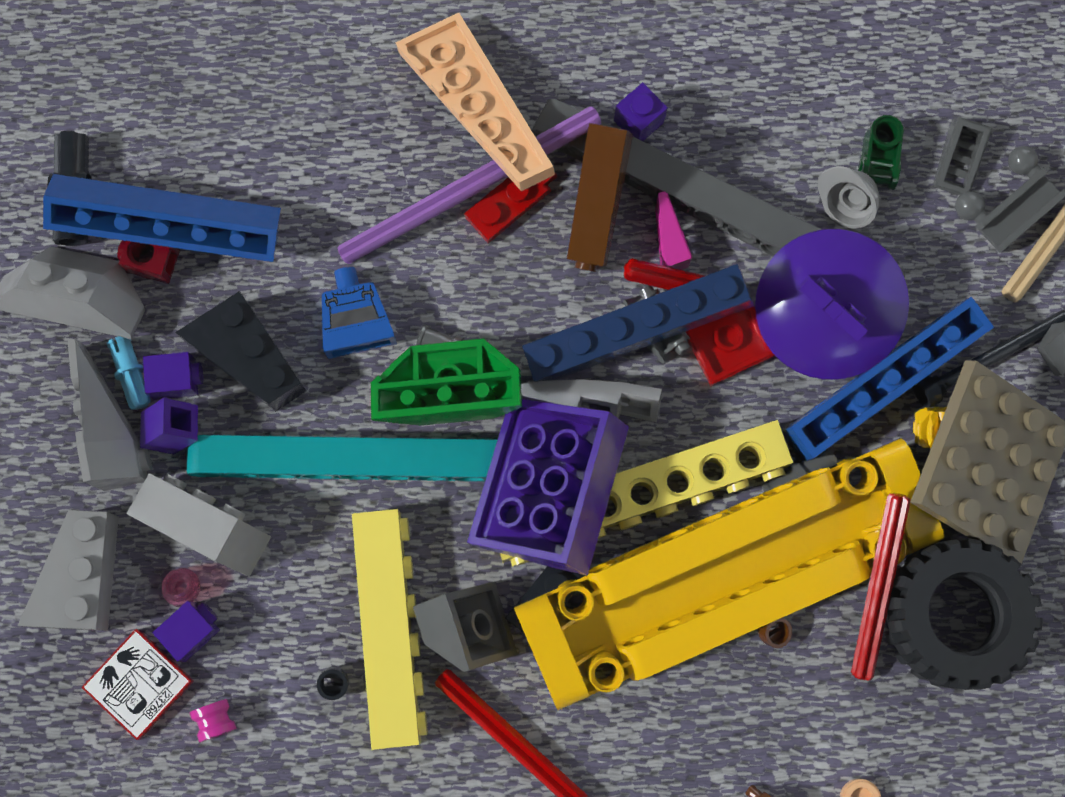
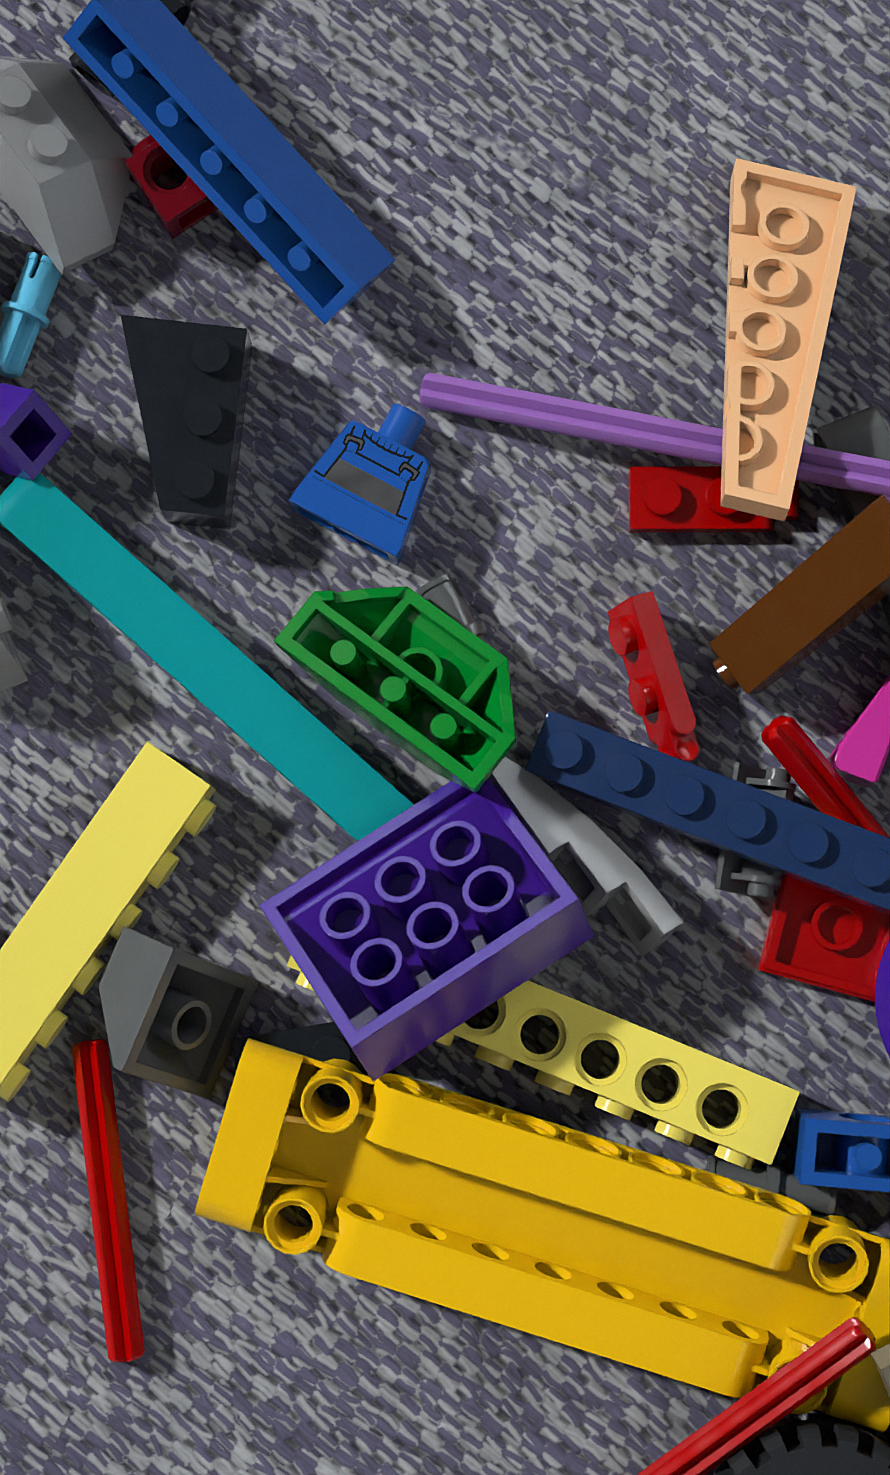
camera: 45 degrees right, 5 degrees up
(172, 375) = (73, 366): dark purple brick -> none
(553, 293) = (654, 676): none -> red hinge
(778, 636) = (555, 1365): reddish brown hinge -> none

